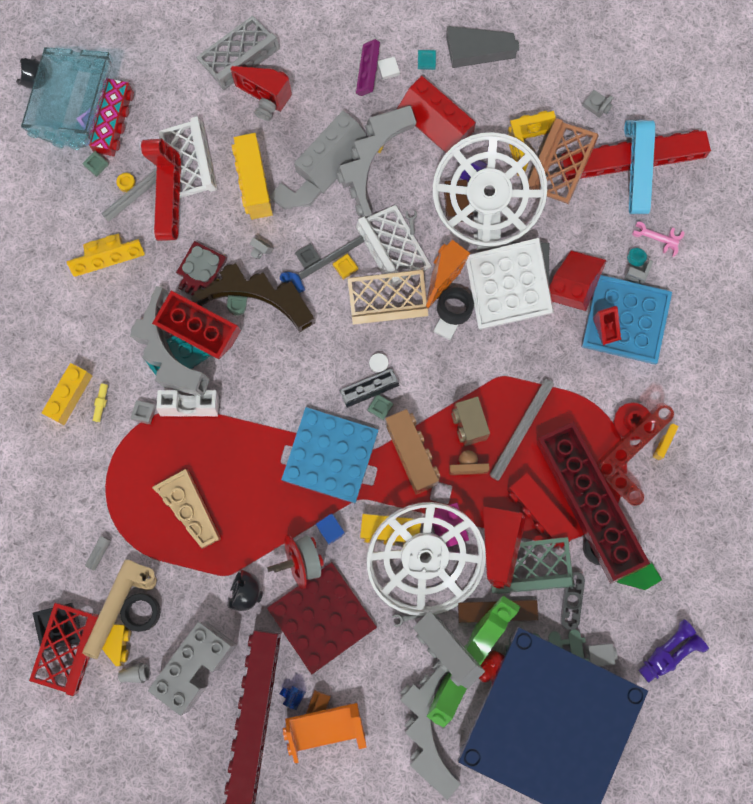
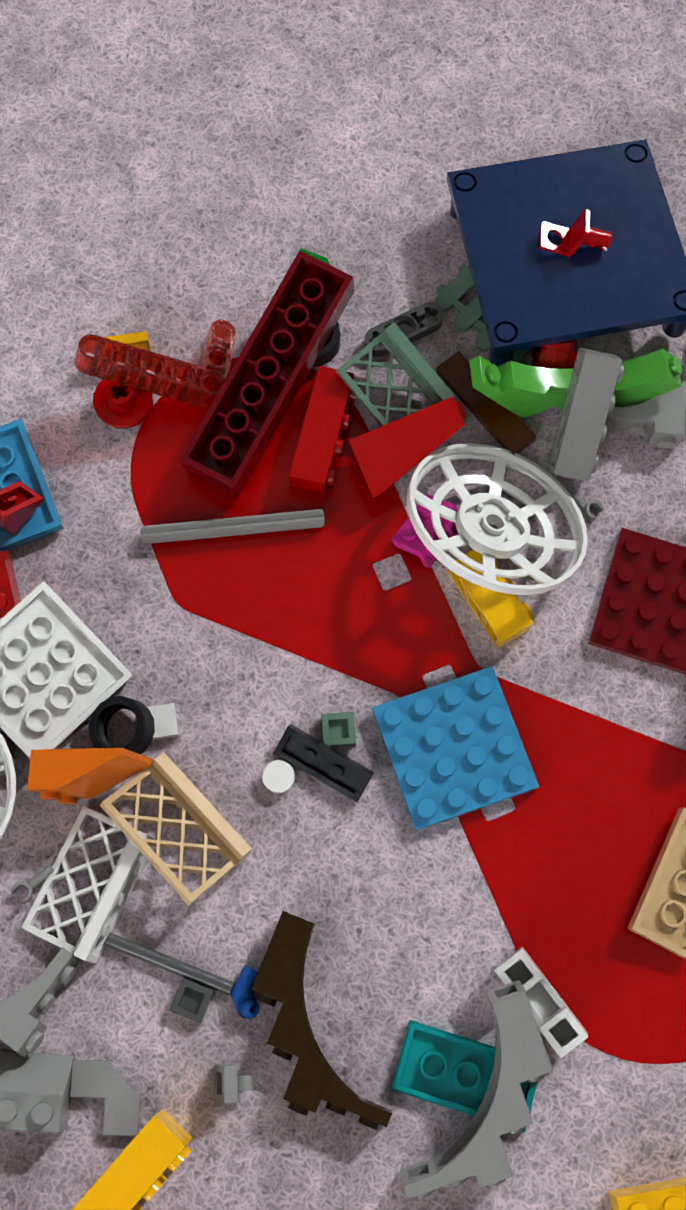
camera: 130 degrees left, 5 degrees down
(100, 402) = (638, 1142): light yellow bar -> none
(143, 412) = (602, 1062): light grey plate -> none
(196, 325) = (425, 1080): red slope -> none
(199, 267) = (326, 1156): piece -> none
(236, 304) = (341, 1051): sand green tile -> none
(302, 560) = (623, 672): piece -> none
(330, 529) = (552, 670): blue panel -> none
(345, 266) = (169, 931): yellow tile -> none
(411, 451) = (372, 635): medium nougat brick -> none
(468, 465) = (332, 557): medium nougat tile -> none
(470, 421) = (274, 589): dark tan brick -> none
(554, 725) = (572, 238): none -> red bracket
(601, 654) = (443, 257): light grey brick -> none
(662, 662) = (396, 190): dark purple piece -> none

